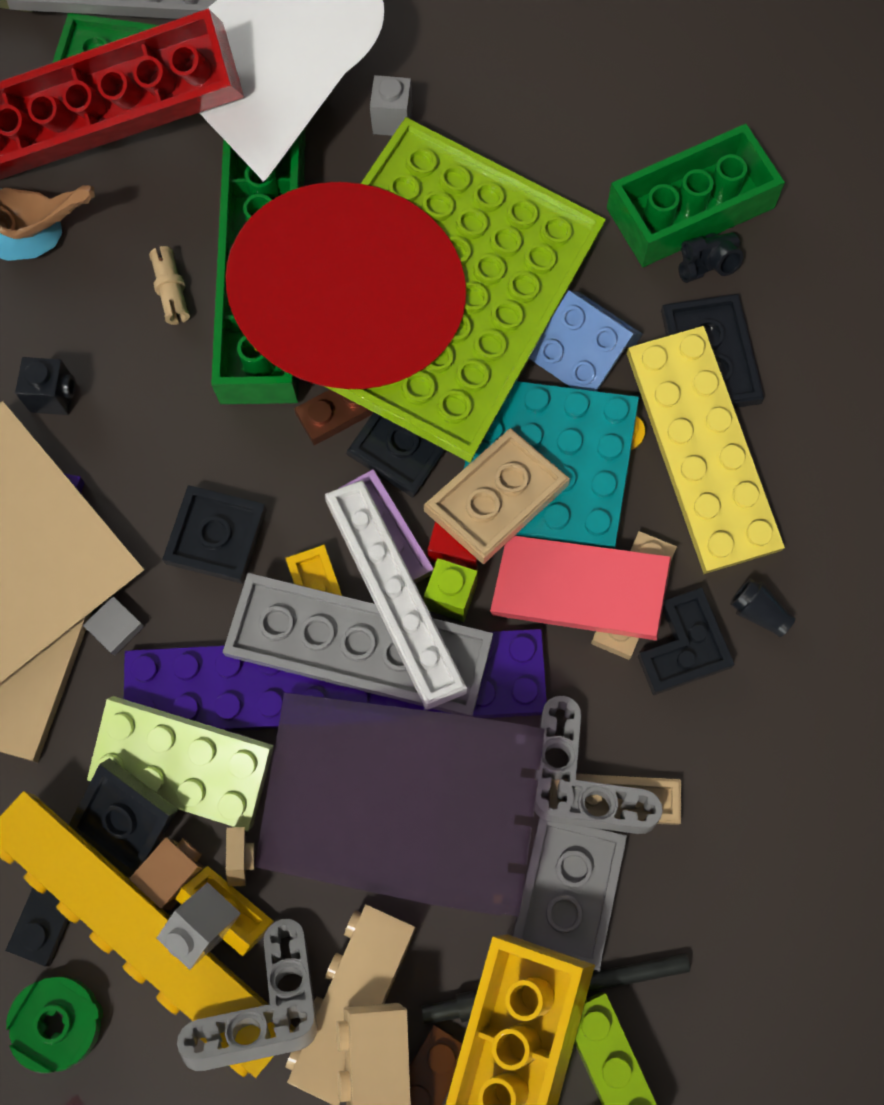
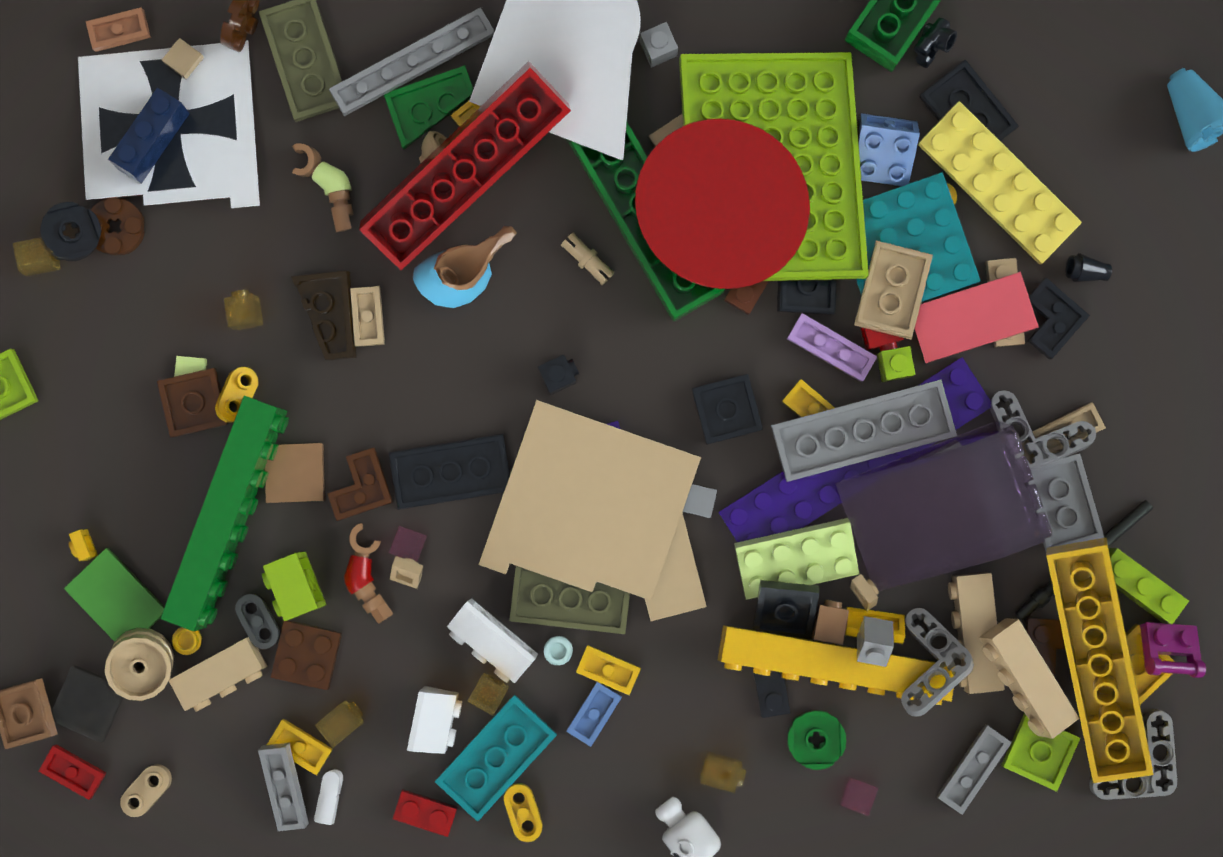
camera: 30 degrees left, 15 degrees up
(396, 596) = (868, 387): white tile -> none

